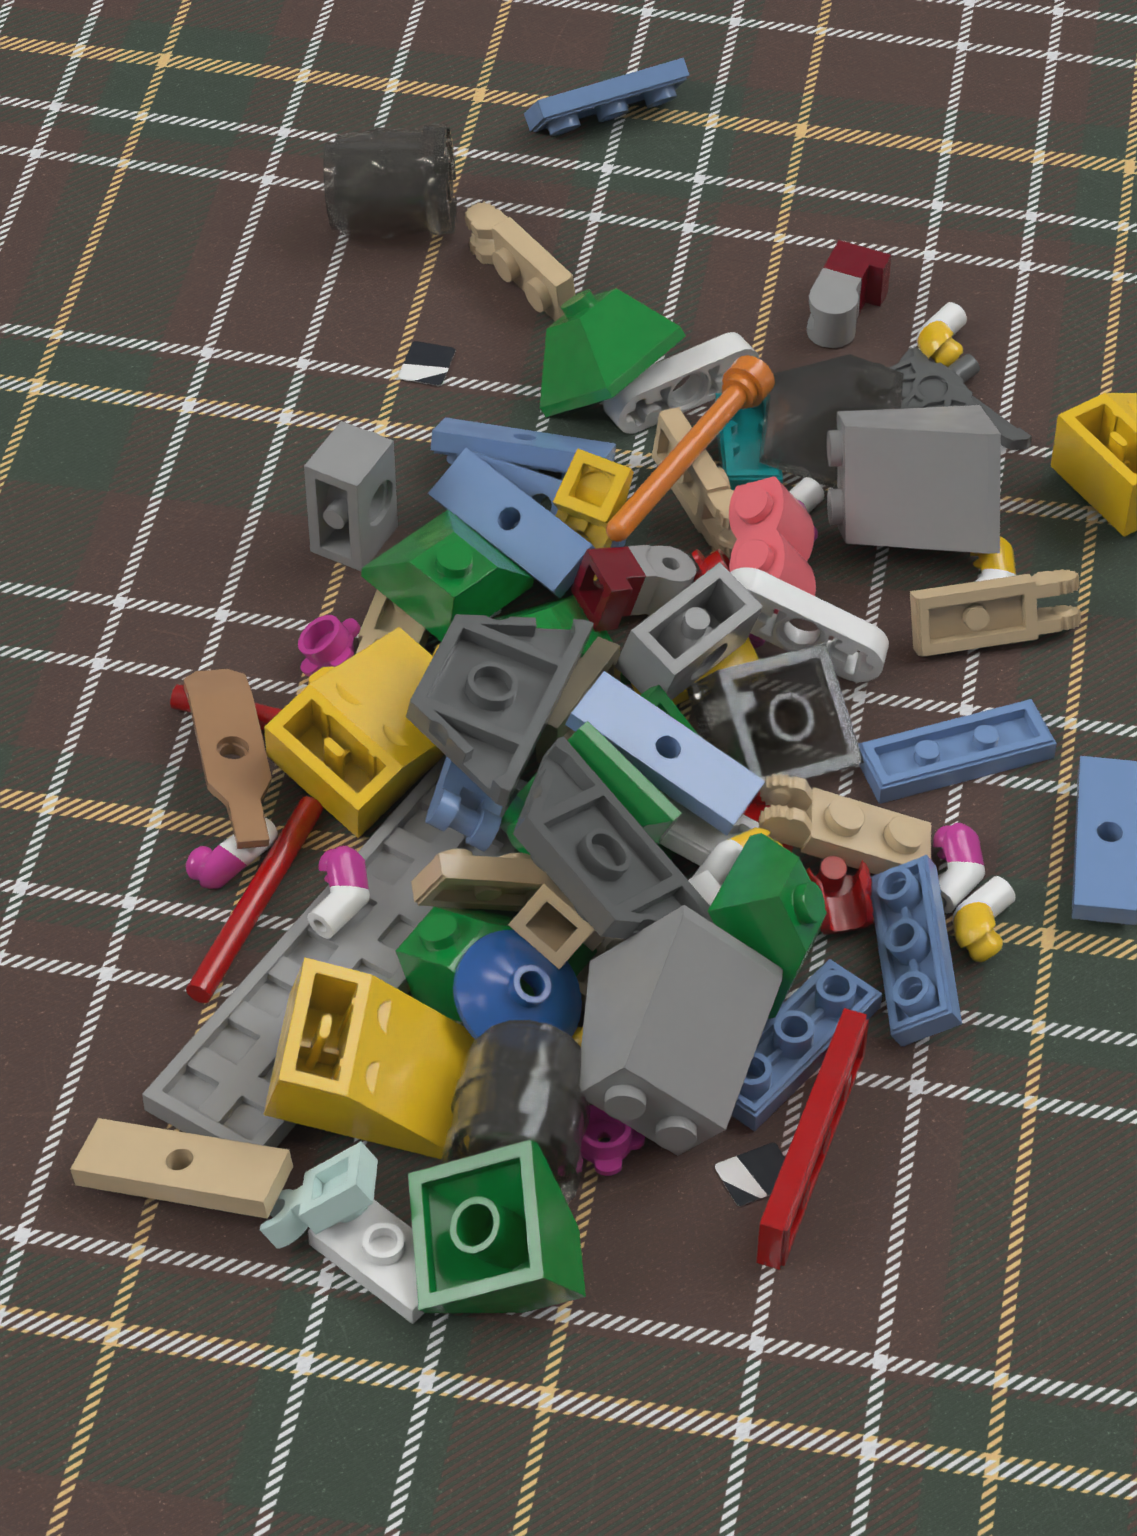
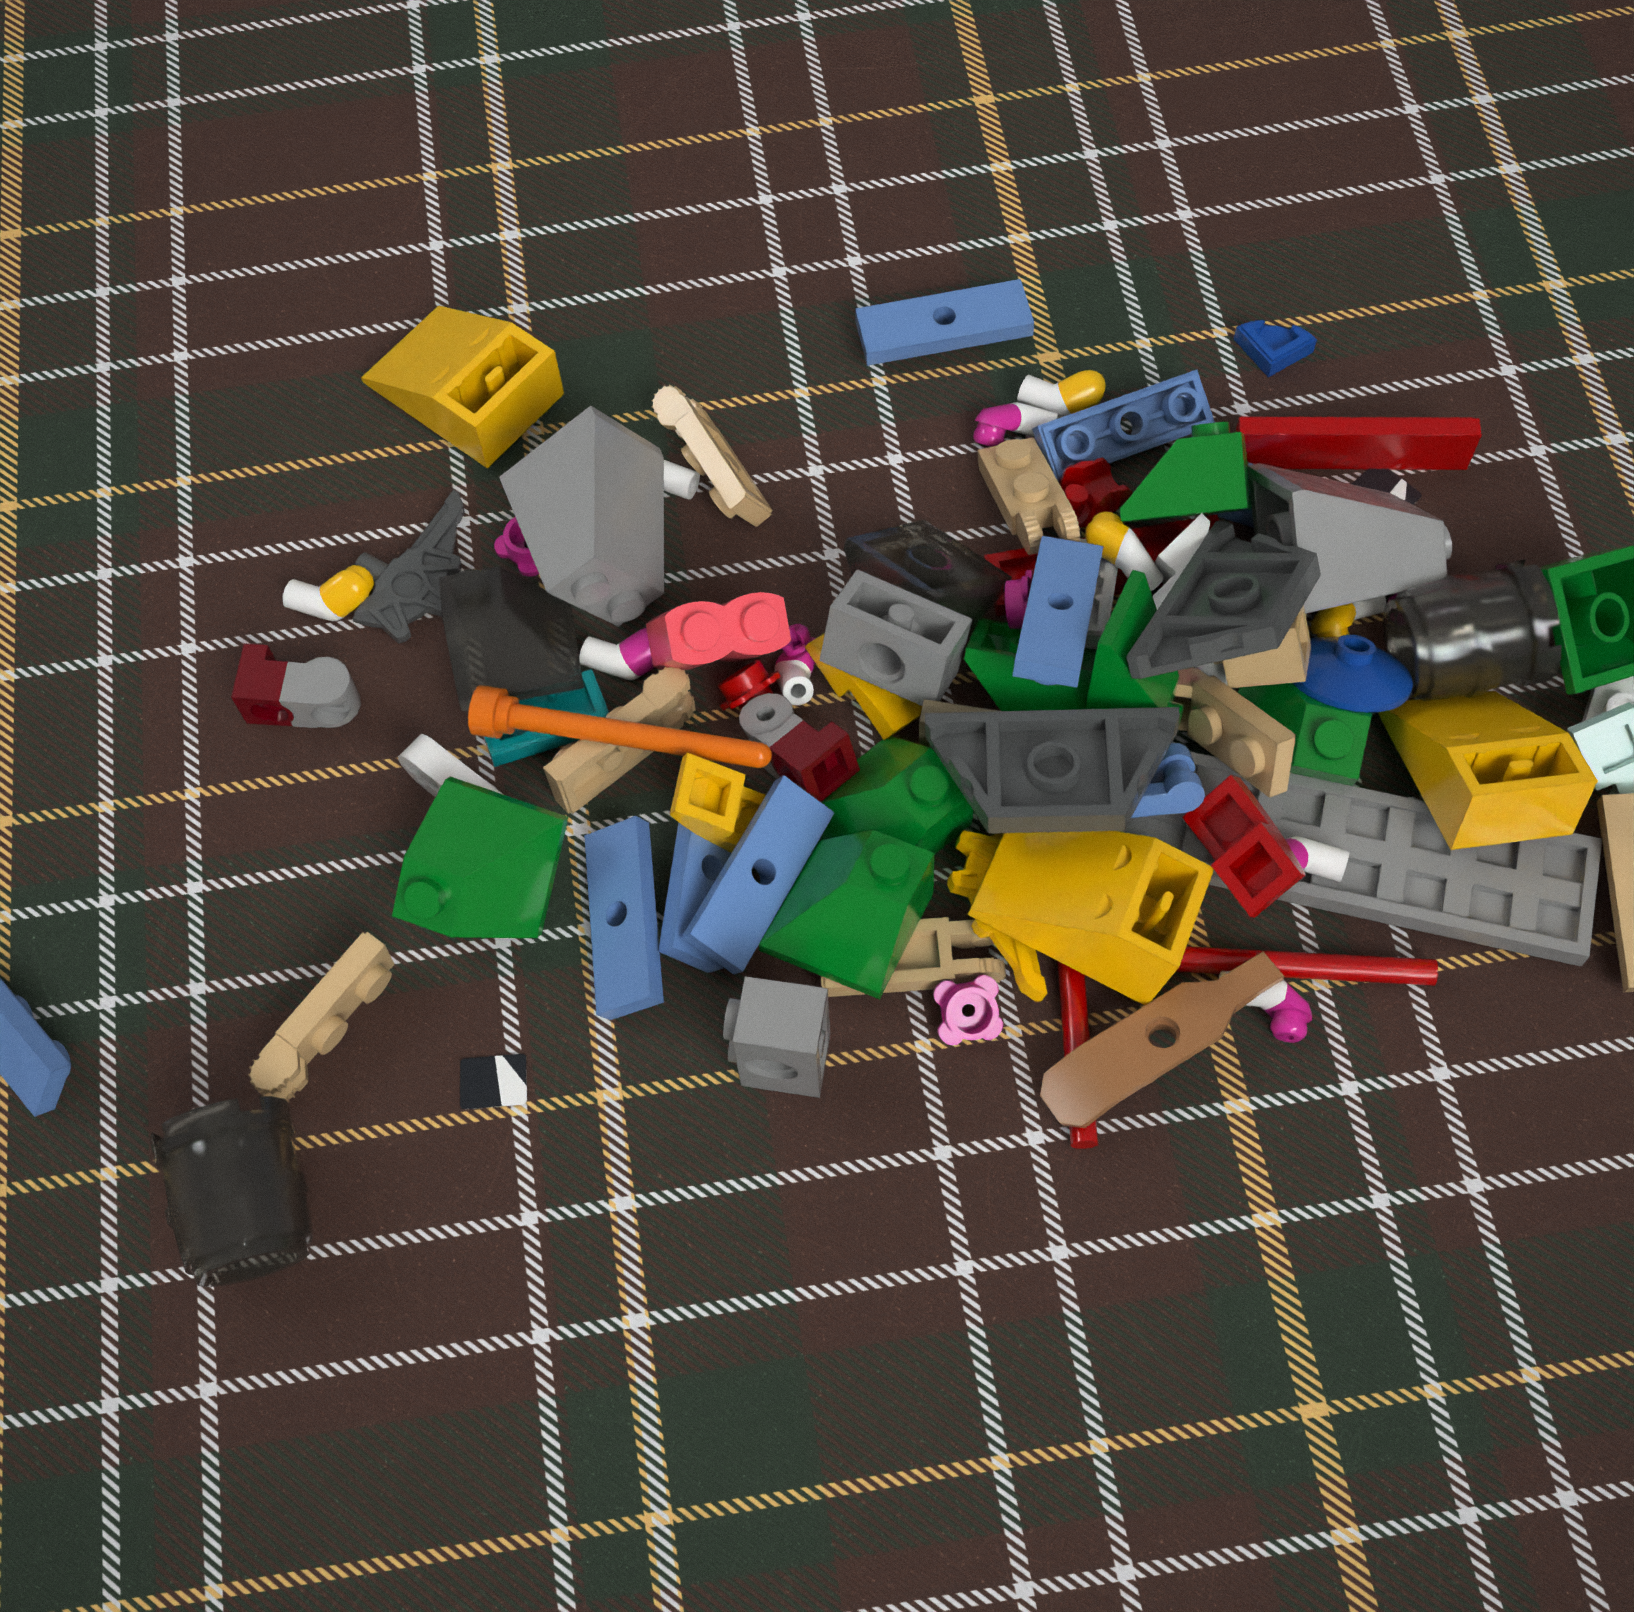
camera: 105 degrees left, 15 degrees up
(348, 833) = (1245, 845): none -> red slope
(849, 631) = (802, 586): white beam -> none
(956, 751) = (877, 458): medium blue tile -> none
(987, 1134) = (1273, 345): none -> blue tile

